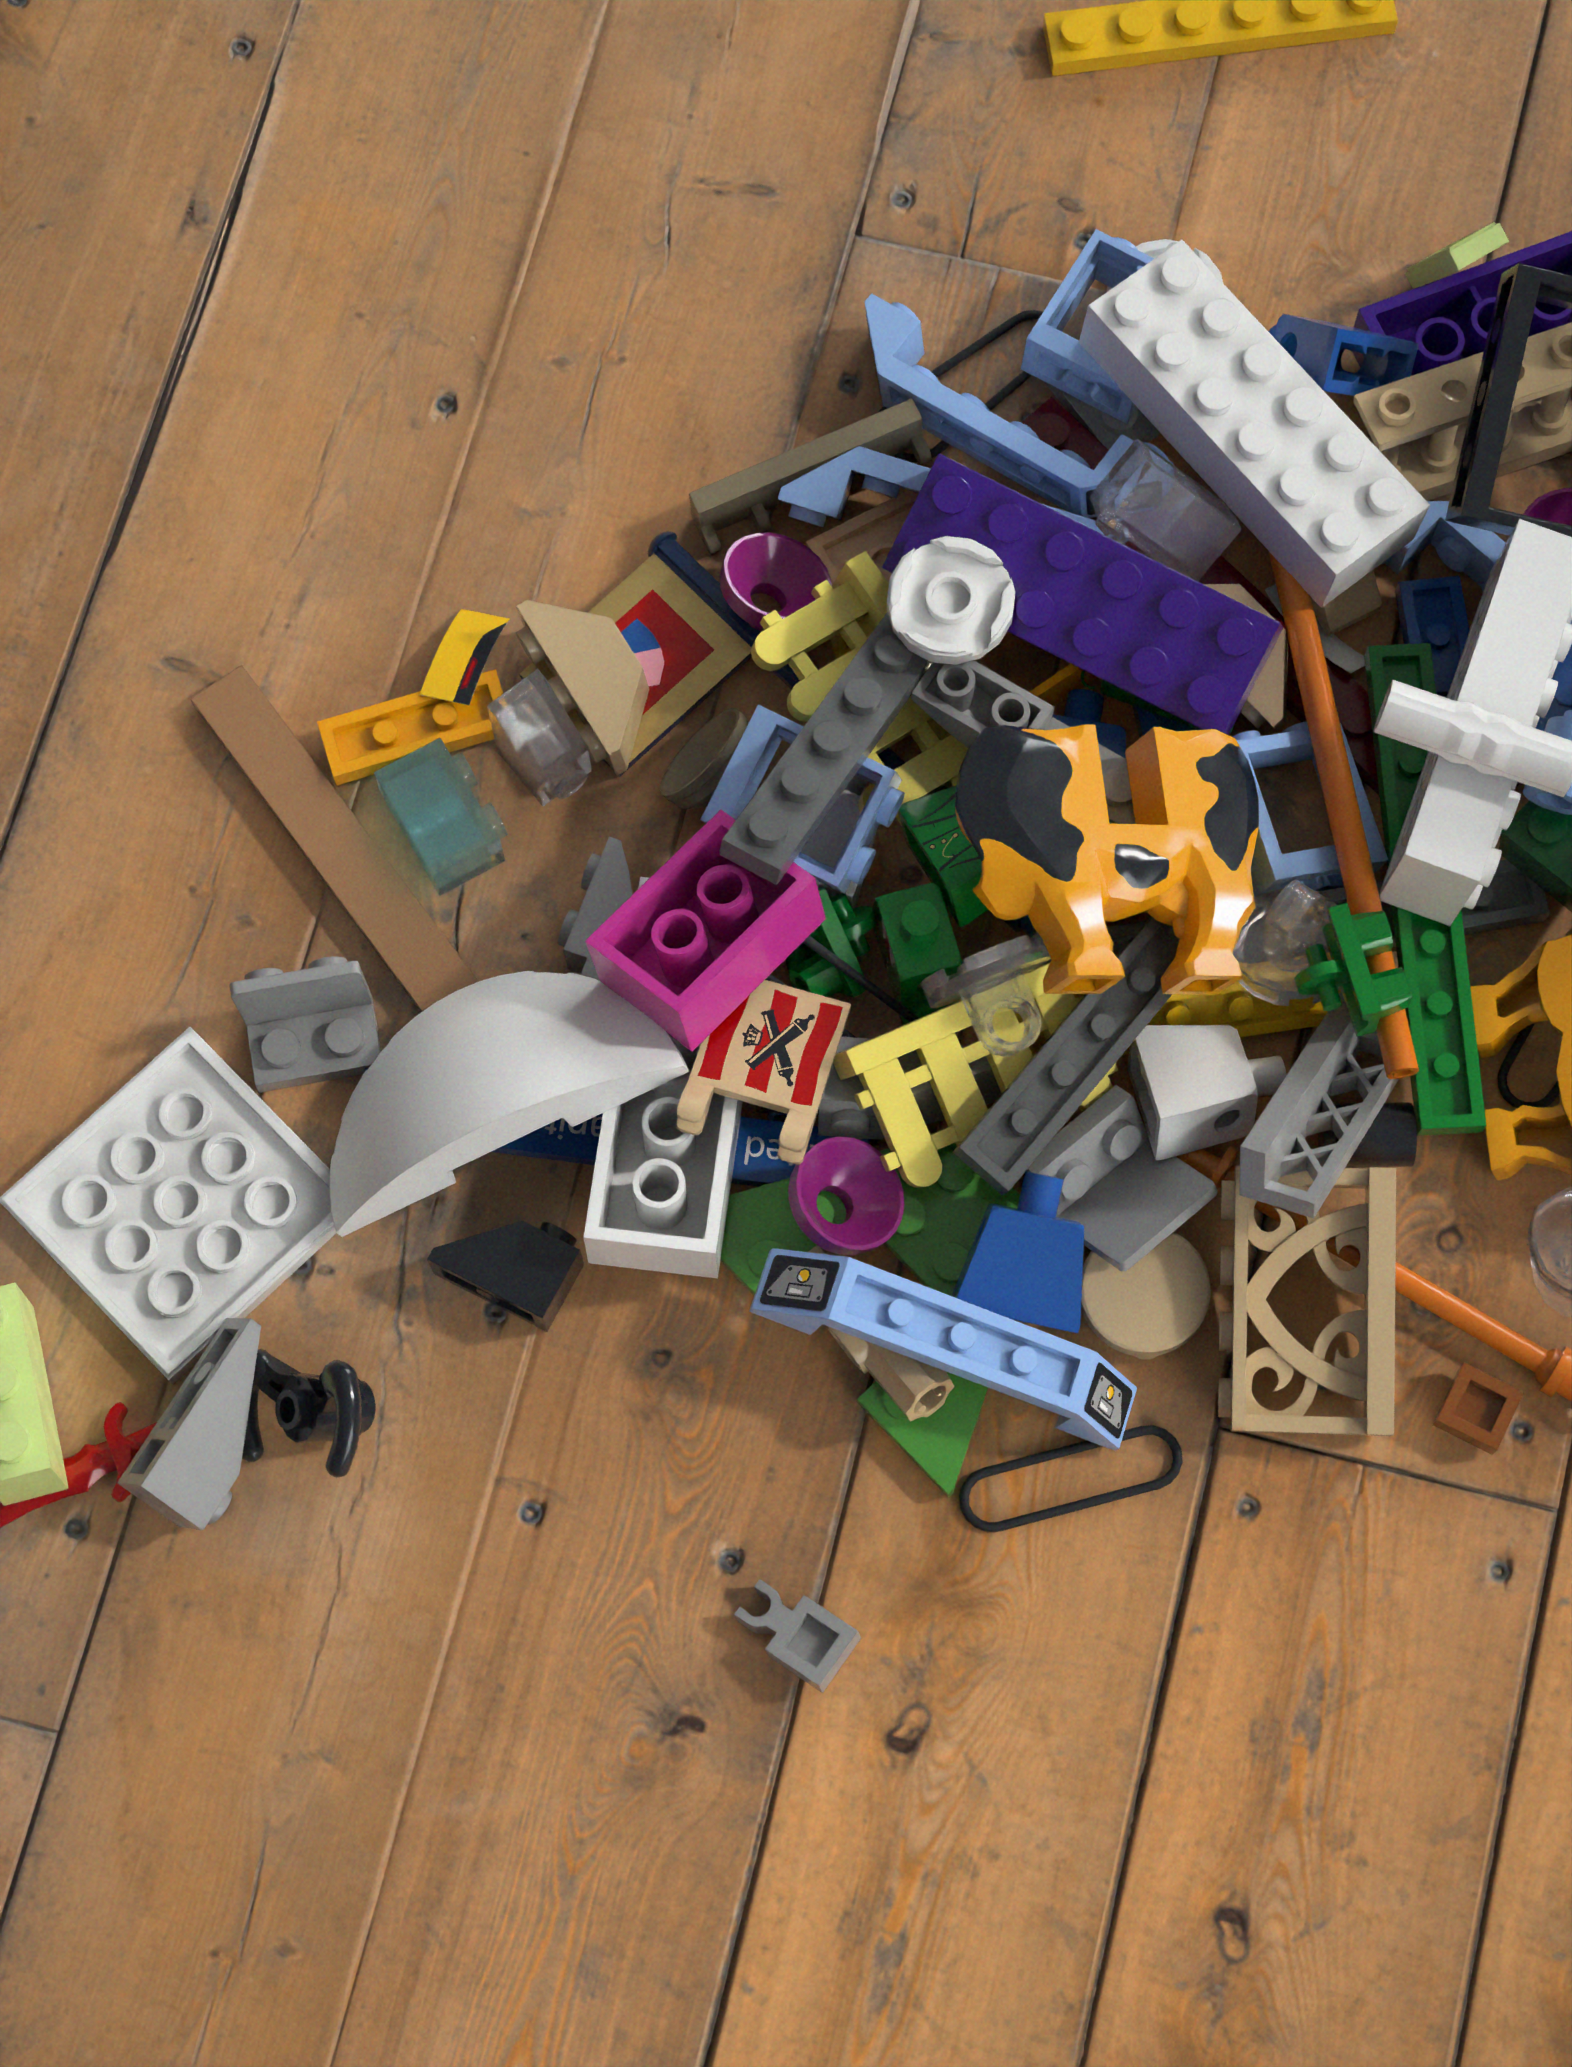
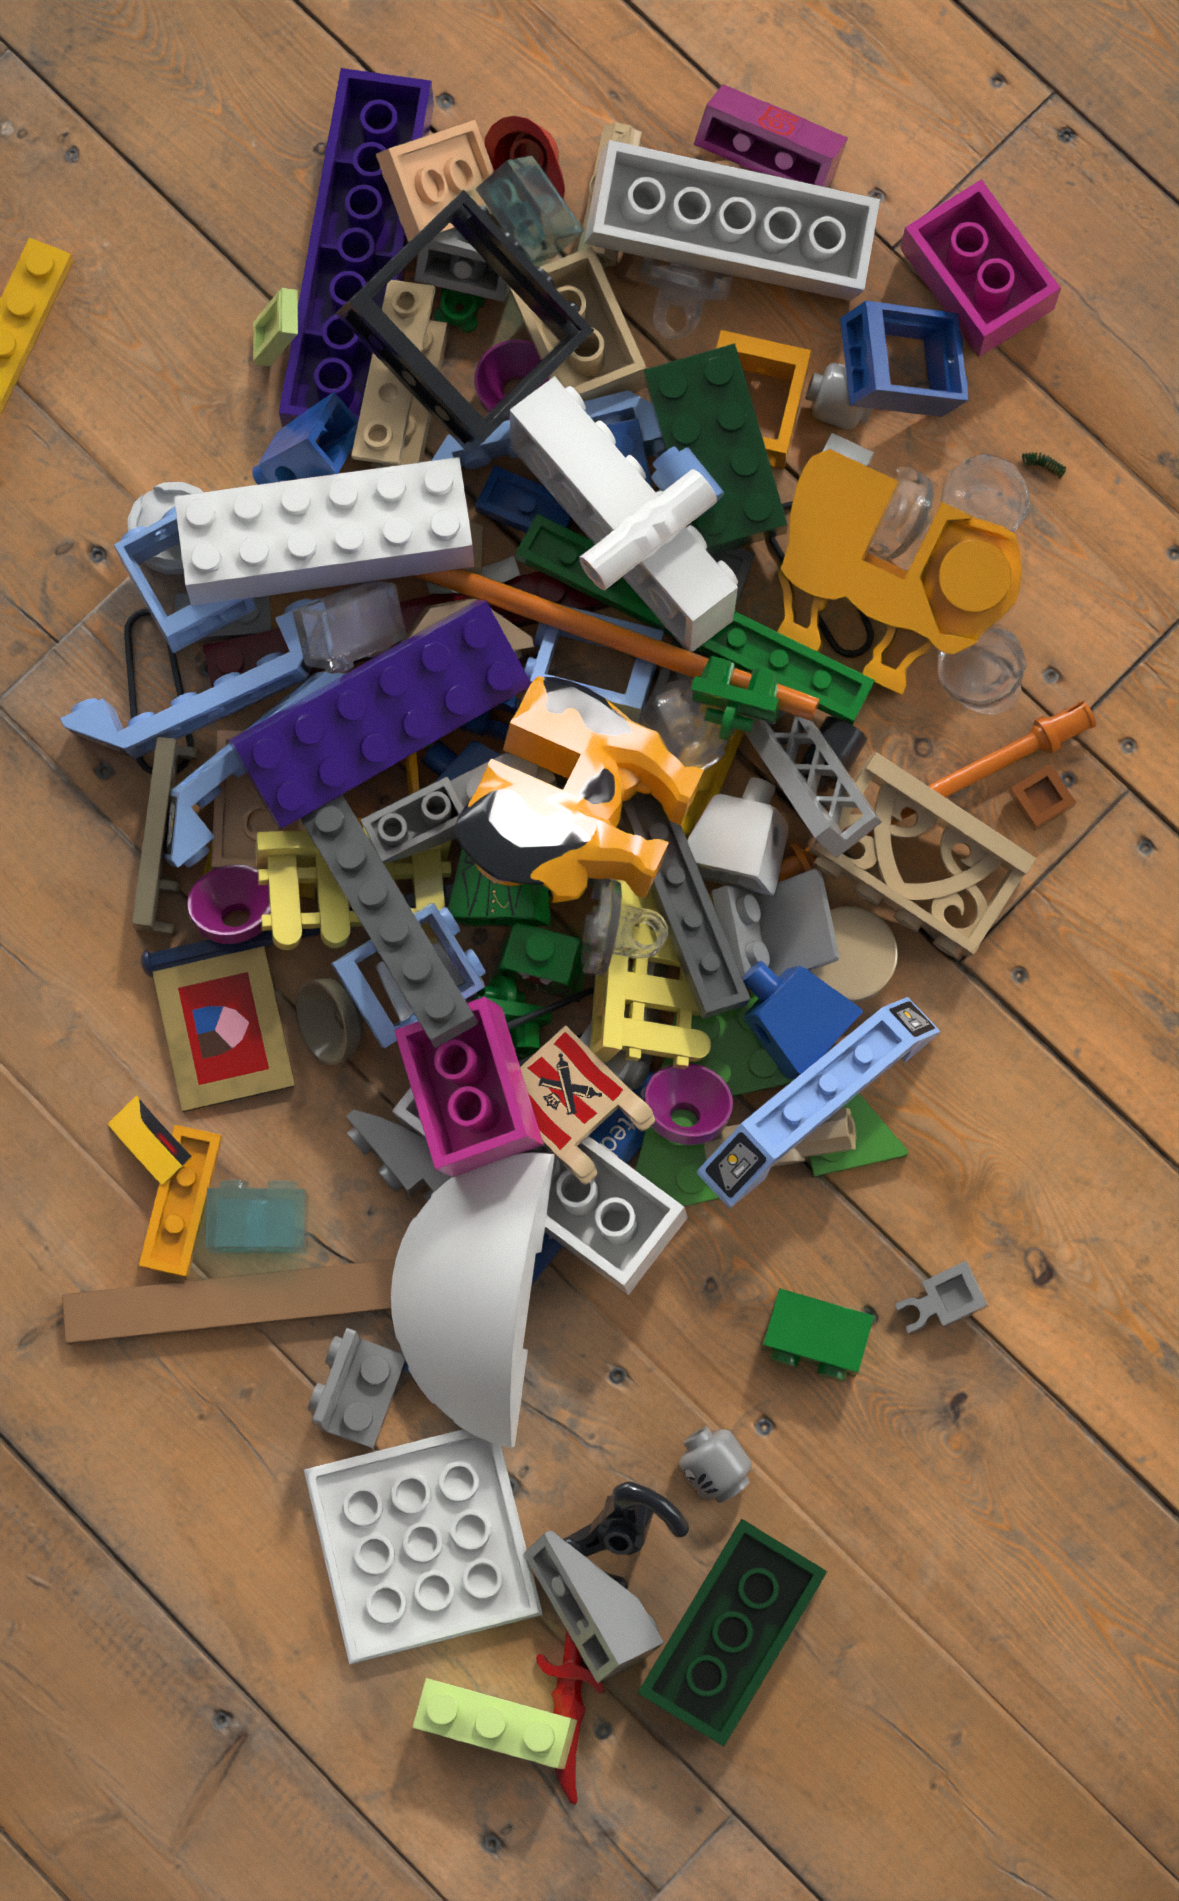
camera: 60 degrees left, 5 degrees up
(257, 1603) = (732, 1632): none -> dark green brick
(449, 1475) = (715, 1464): none -> light grey head
(514, 1268) = (602, 1344): black slope -> none
(539, 739) = (250, 1123): clear slope -> none
(591, 674) = (221, 1063): tan slope -> none
(669, 1507) = (817, 1335): none -> green brick
(950, 600) = (341, 798): white tile -> none
(1072, 1506) = (958, 1079): black piece -> none

